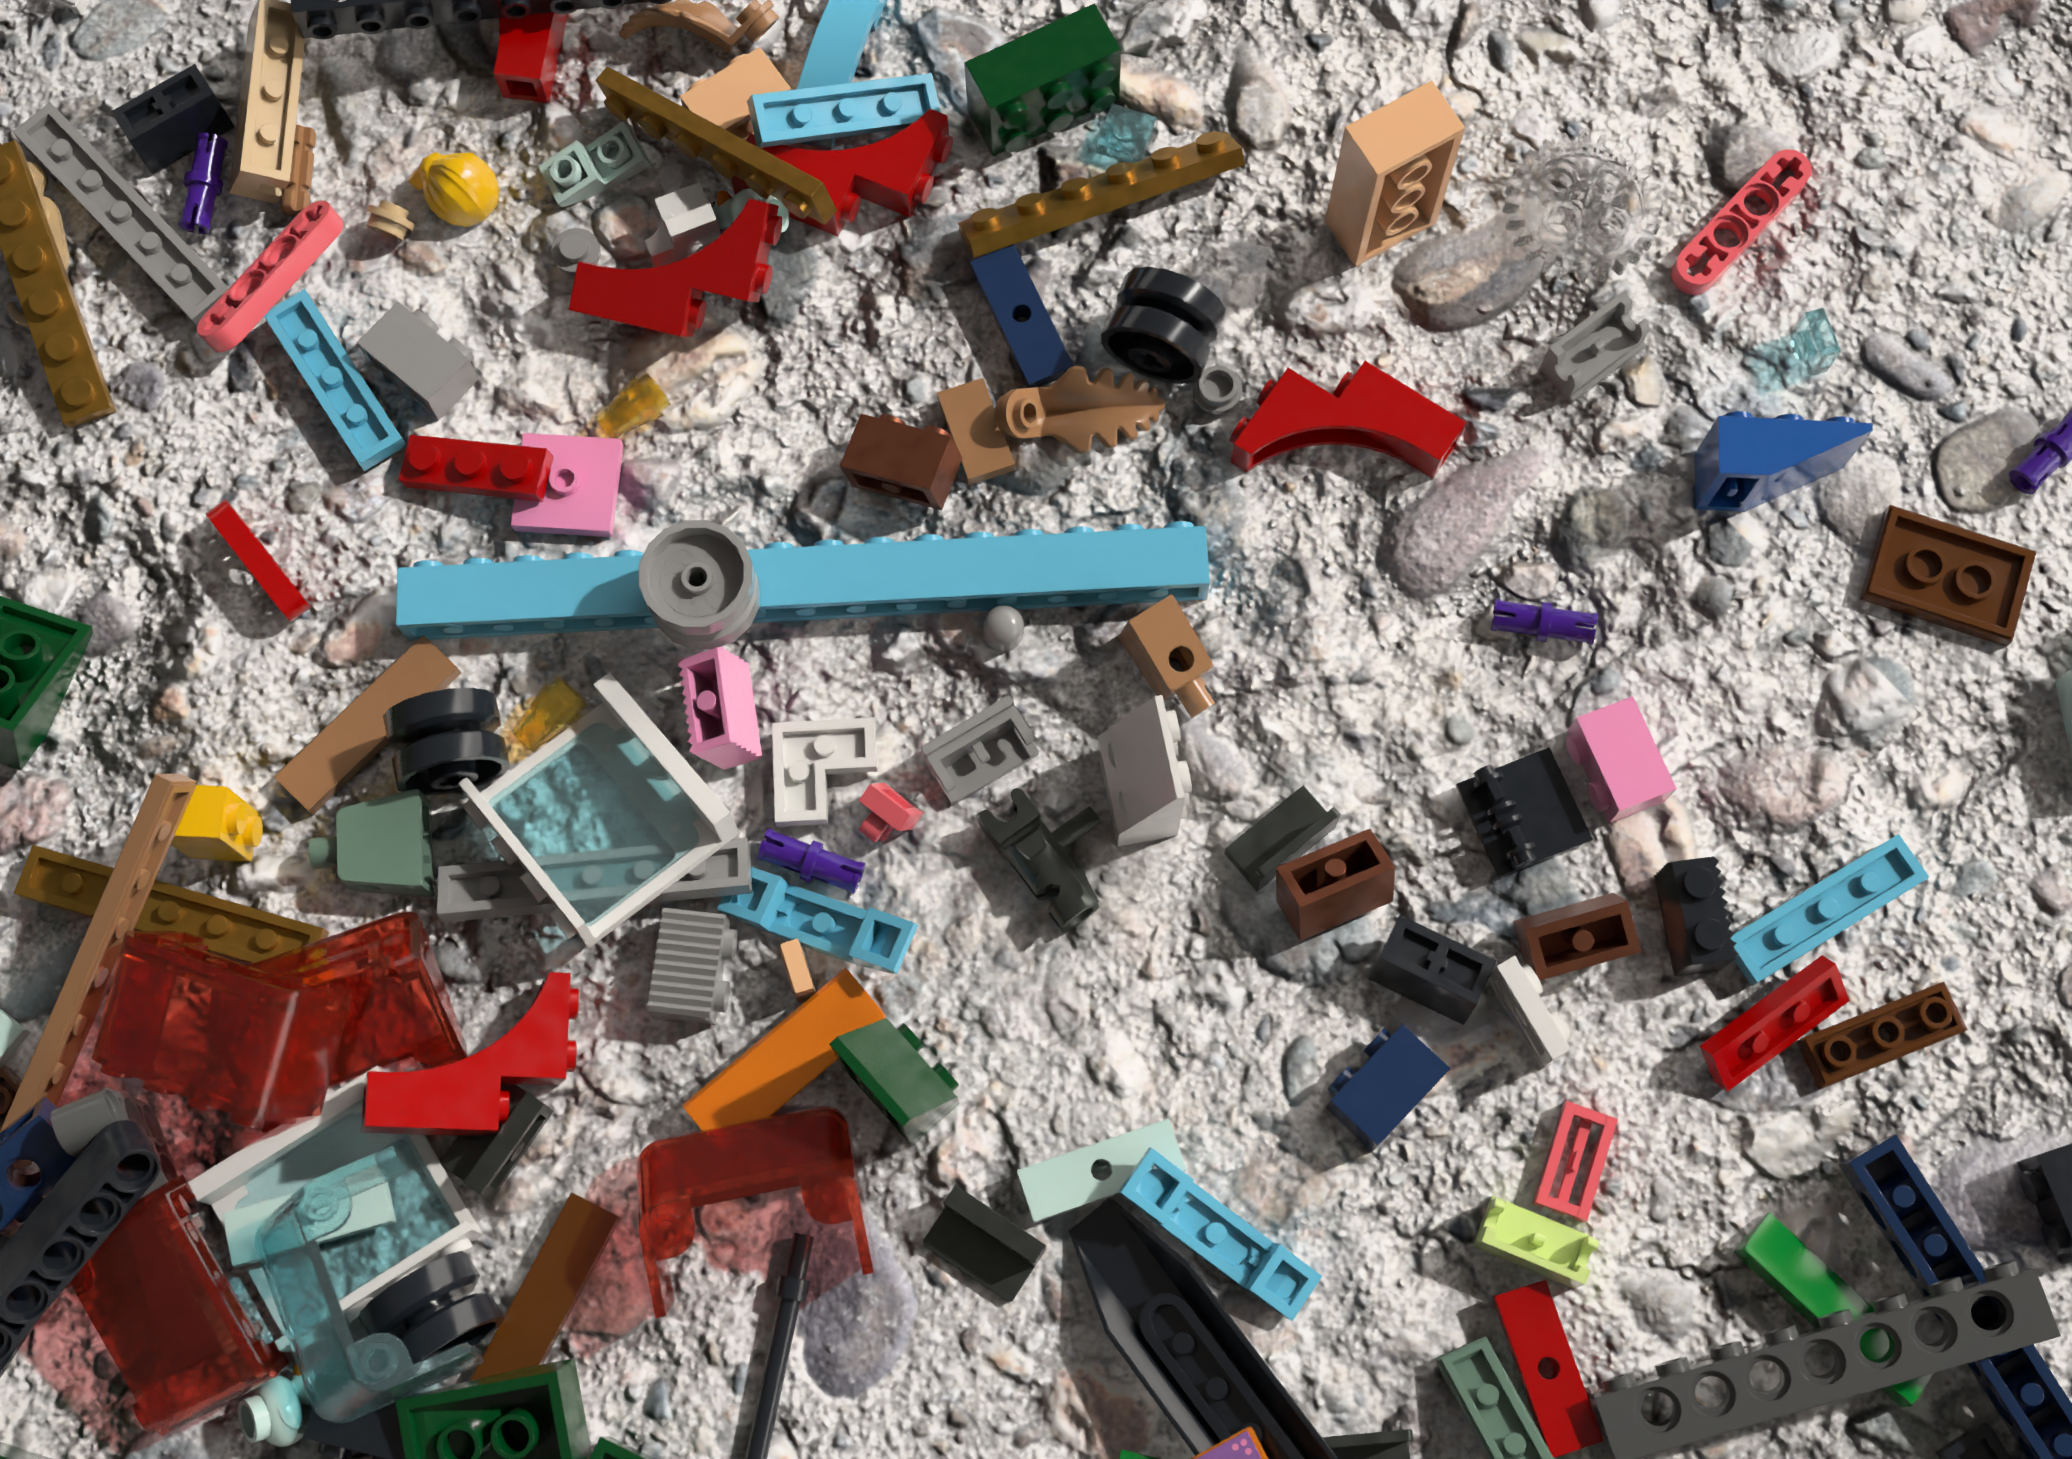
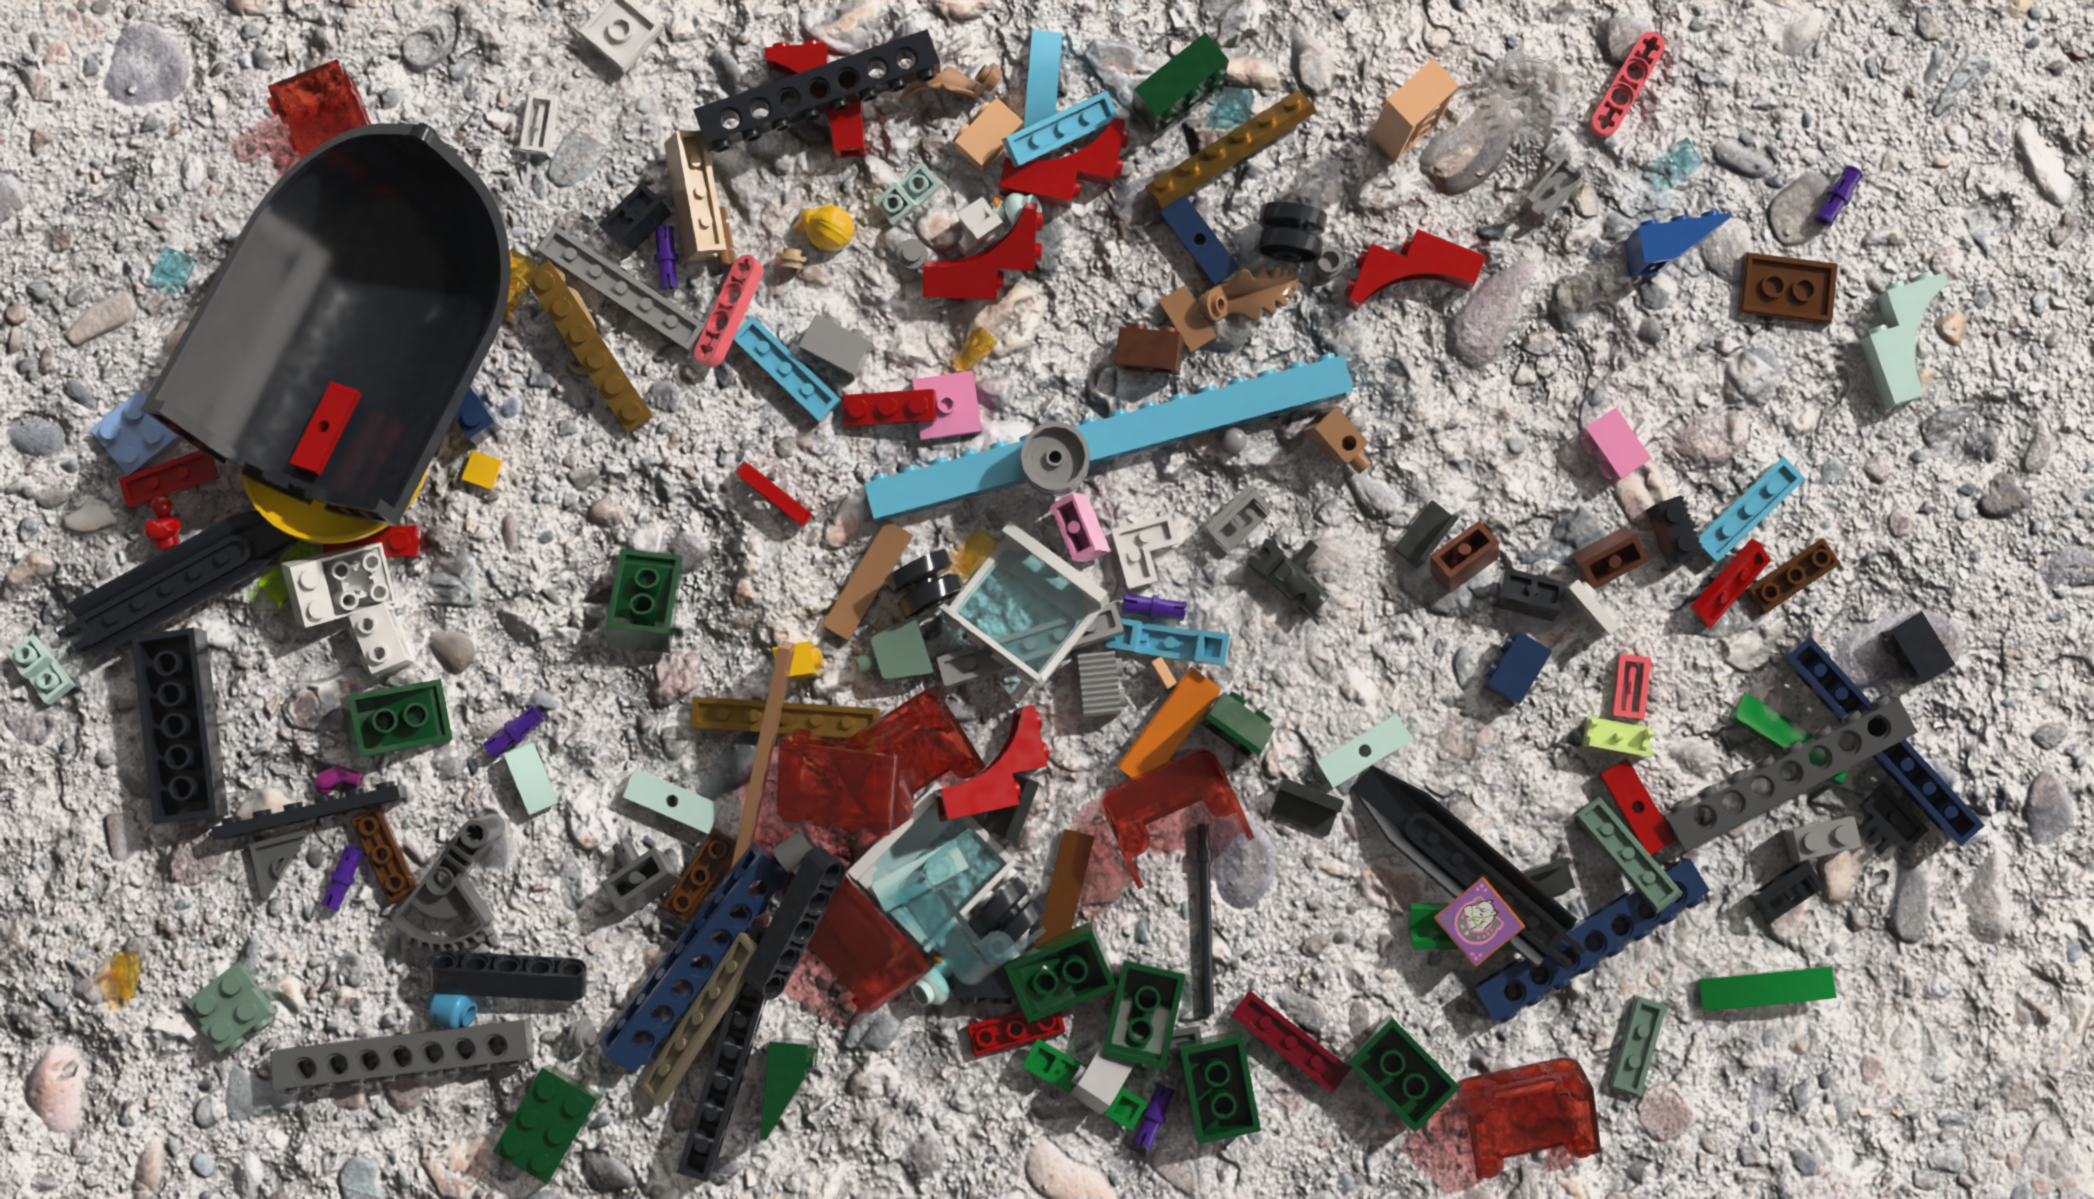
camera: 15 degrees left, 10 degrees up
(724, 150) = (997, 176): pearl gold plate -> none
(888, 812) = (1193, 567): coral tile -> none
(1142, 775) = (1341, 516): white slope -> none
(1219, 1235) = (1440, 773): medium azure slope -> none
(1523, 812) = (1563, 488): black hinge -> none
(1544, 621) = (1554, 369): dark purple pin -> none

